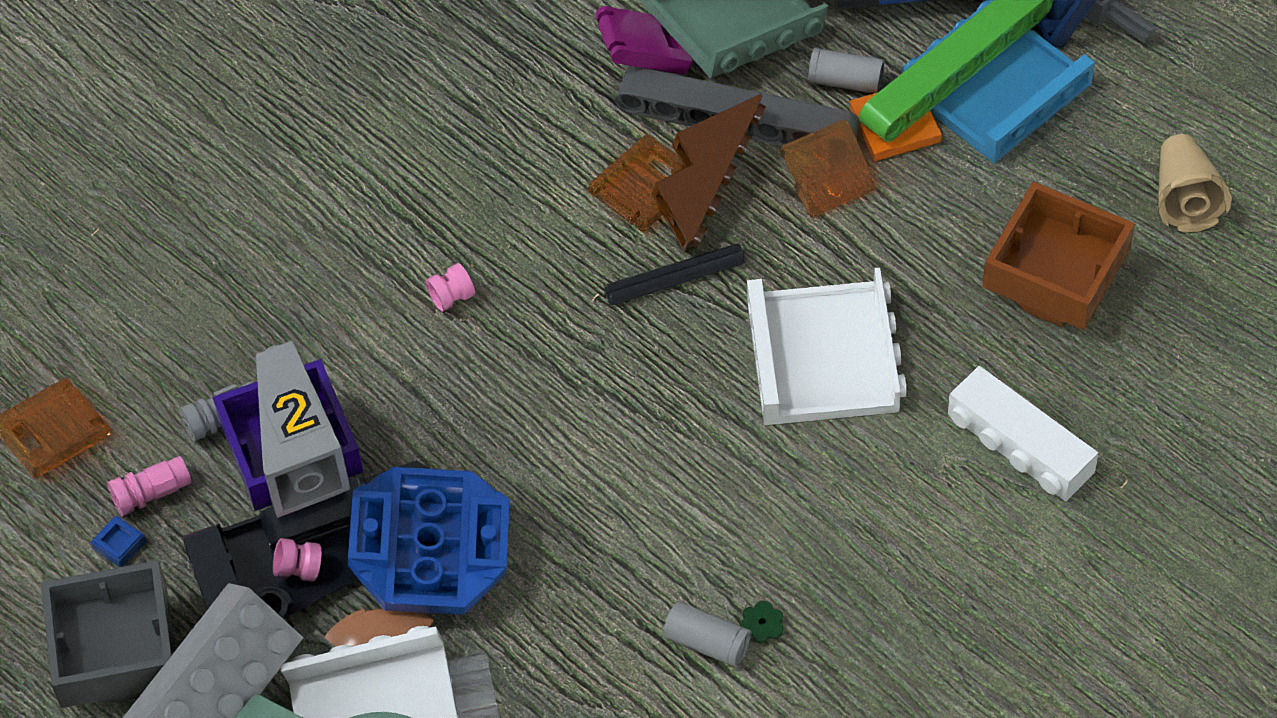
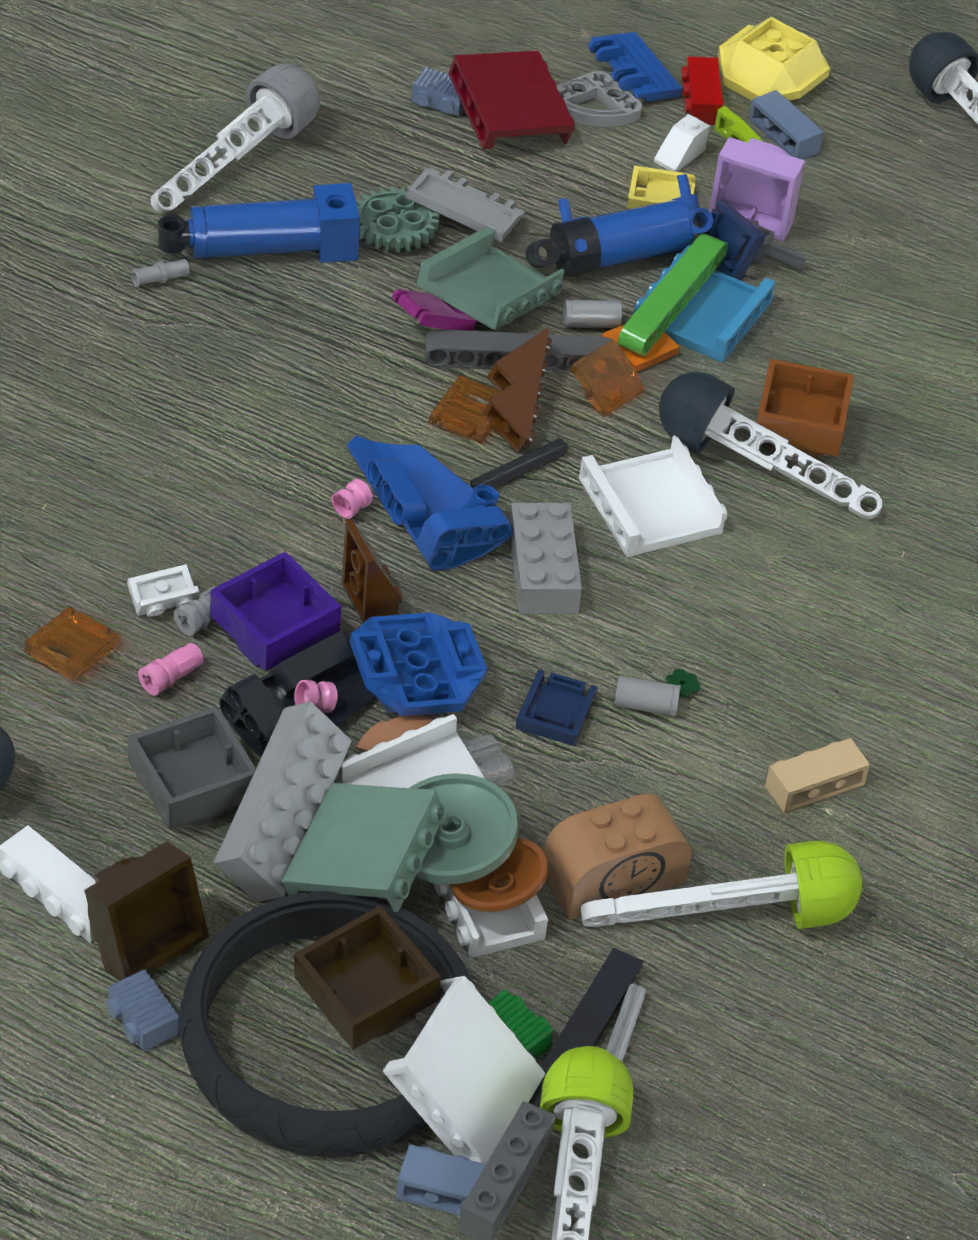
camera: 25 degrees left, 10 degrees down
(118, 541) = (159, 711): blue tile -> none
(177, 376) = (162, 590): none -> white bracket
(297, 440) = (299, 594): light grey slope -> none
(420, 406) = (366, 578): none -> reddish brown slope
(543, 306) = (434, 505): none -> blue panel
(596, 622) = (556, 708): none -> dark blue container
(651, 414) = (545, 558): none -> light grey brick
(917, 240) = (698, 409): none -> piece
(1022, 433) = (821, 529): white brick -> none
(1190, 186) = (876, 353): tan cone -> none

